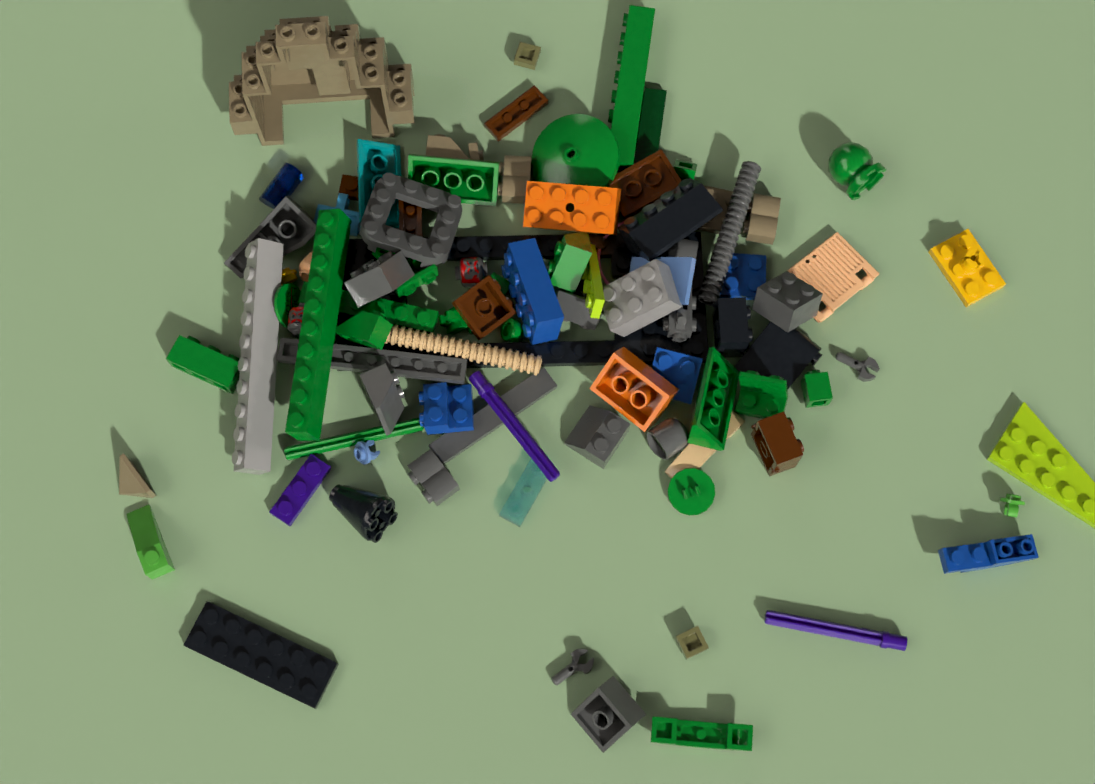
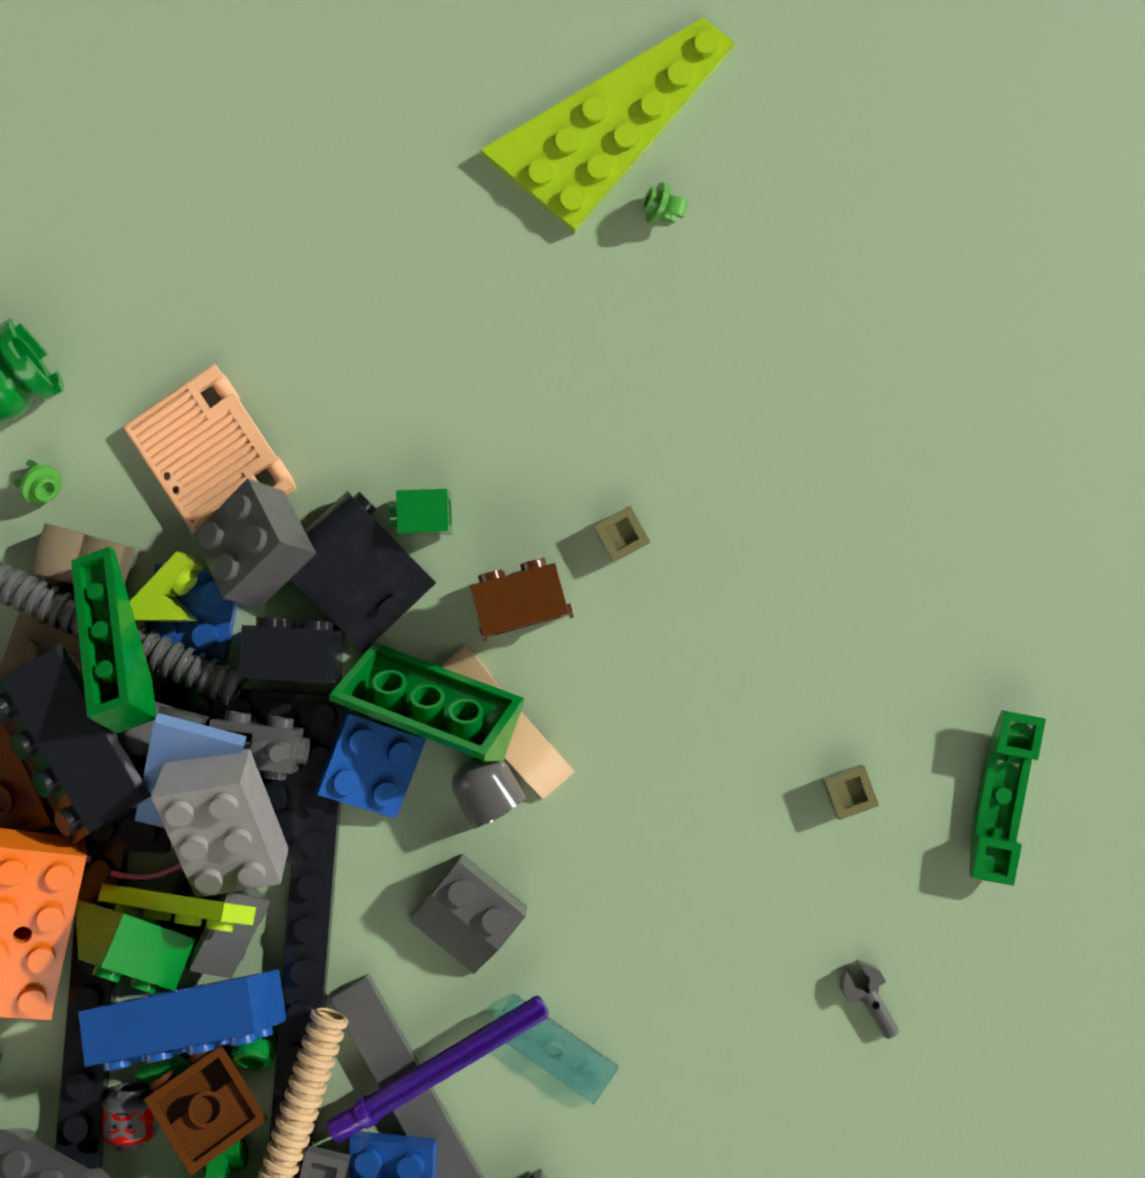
camera: 85 degrees left, 15 degrees up
(608, 714) = (958, 948): dark grey slope -> none
(634, 389) = (392, 846): orange brick -> none
(691, 491) = (586, 758): green piece -> none
(723, 234) = (111, 650): none -> green slope
(750, 256) = (158, 598): none -> lime slope
(761, 395) = (431, 612): green bracket -> none
(799, 193) = (39, 483): none -> bright green plate
(820, 499) = (621, 534): none -> olive plate
(859, 366) = (383, 427): dark grey bar -> none
(882, 639) = (872, 465): dark purple axle -> none
(967, 267) = (217, 202): yellow plate -> none
(988, 554) = (747, 263): blue slope -> none

